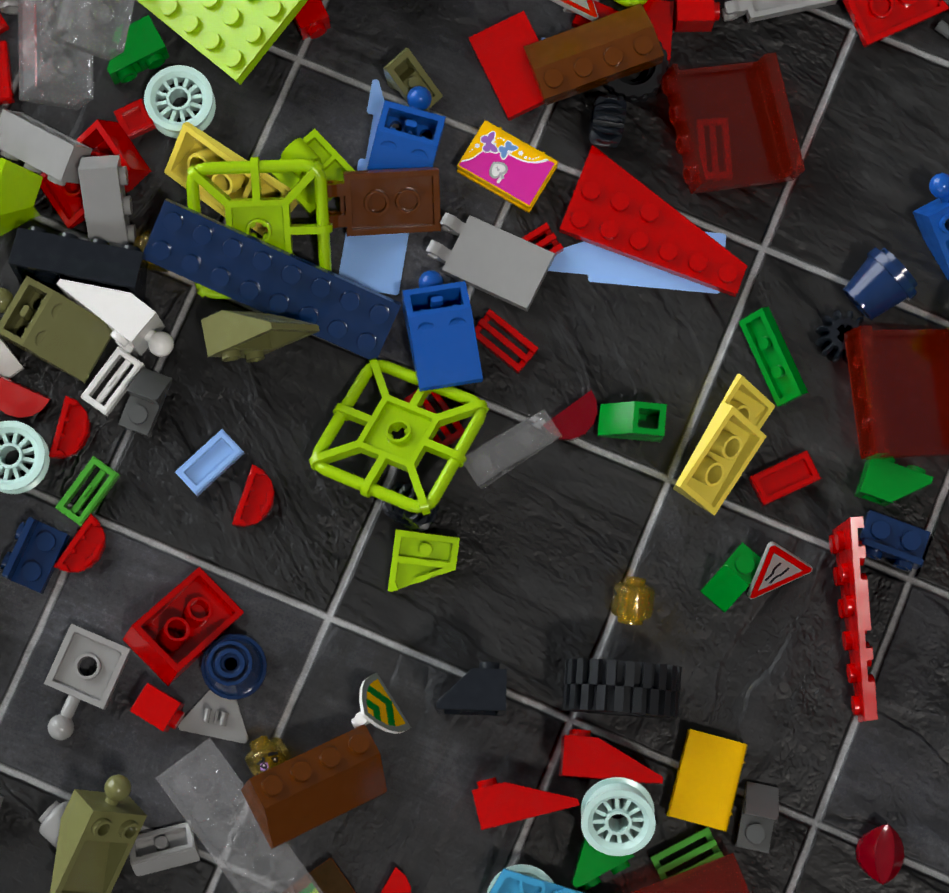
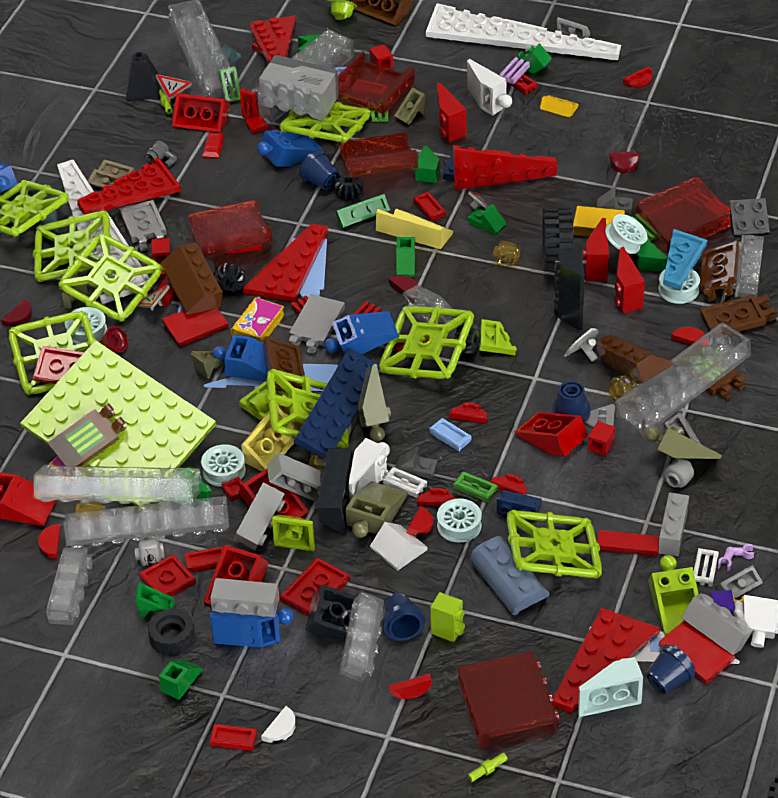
camera: 90 degrees left, 35 degrees down
(93, 689) = (595, 474): light grey plate -> none

